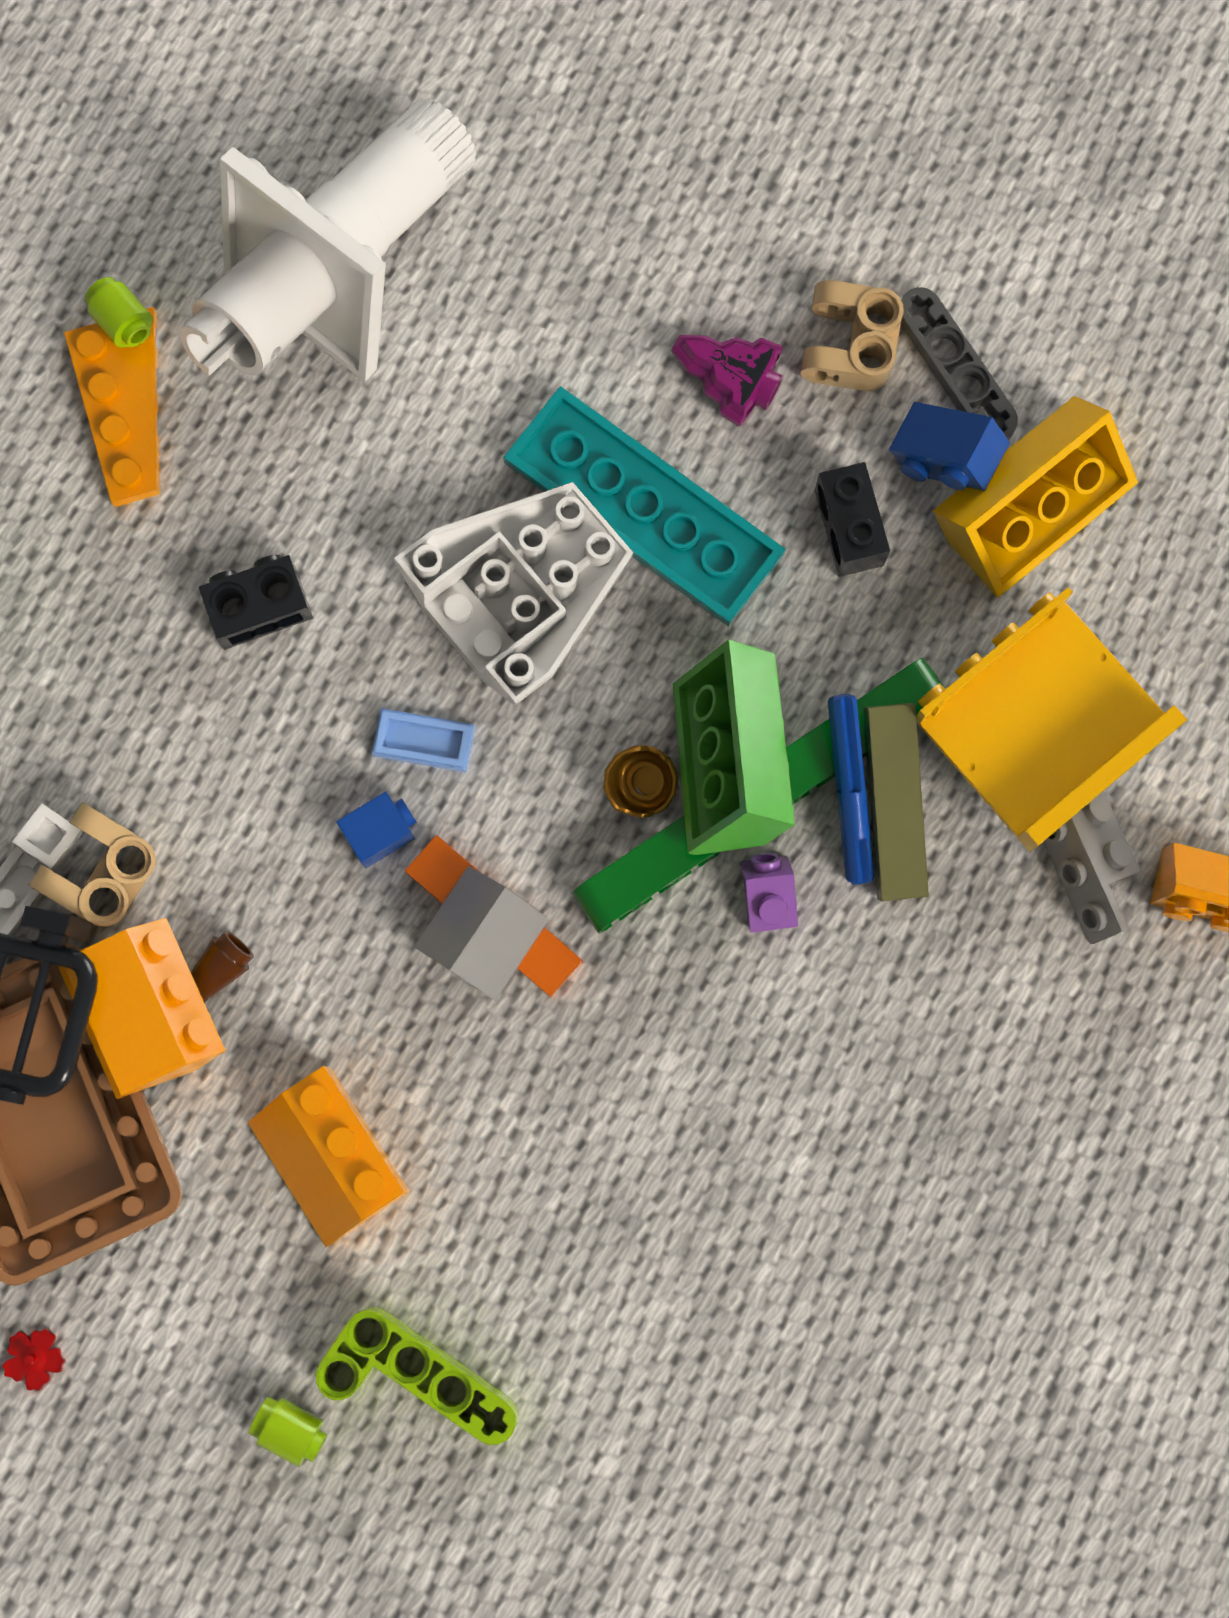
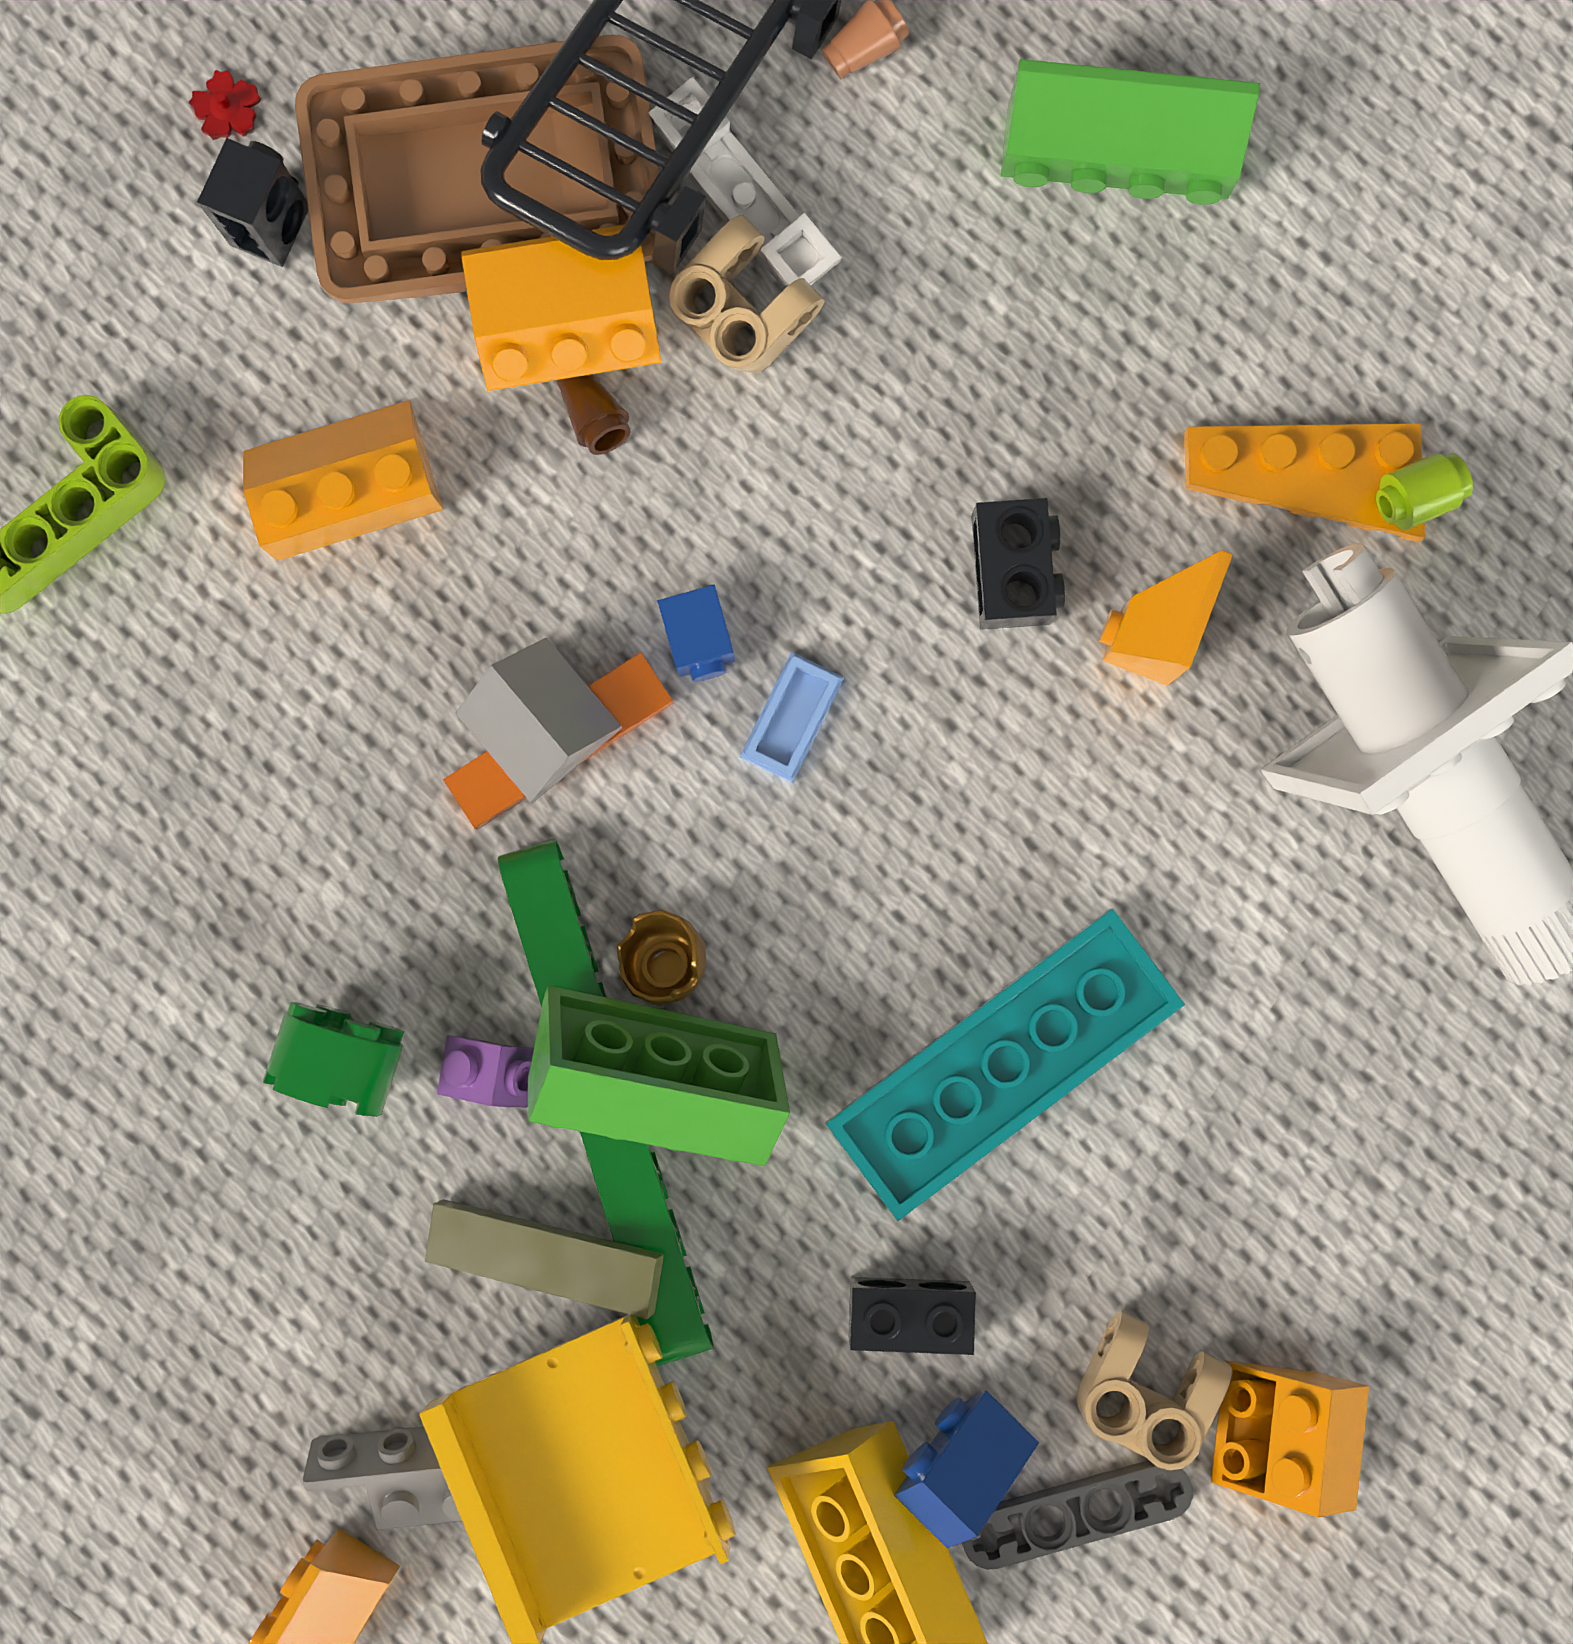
camera: 110 degrees right, 5 degrees up
(114, 1290) = (254, 200): none -> black brick
(272, 470) = (1165, 623): none -> light orange slope
(288, 1431) = (53, 355): lime brick -> none
(517, 584) = (944, 882): white wedge -> none
(732, 372) = (1145, 1226): magenta rock -> none
(796, 1006) = (333, 1059): none -> green brick
(851, 788) = (573, 1207): blue axle -> none
(853, 230) = (1291, 1438): none -> light orange slope

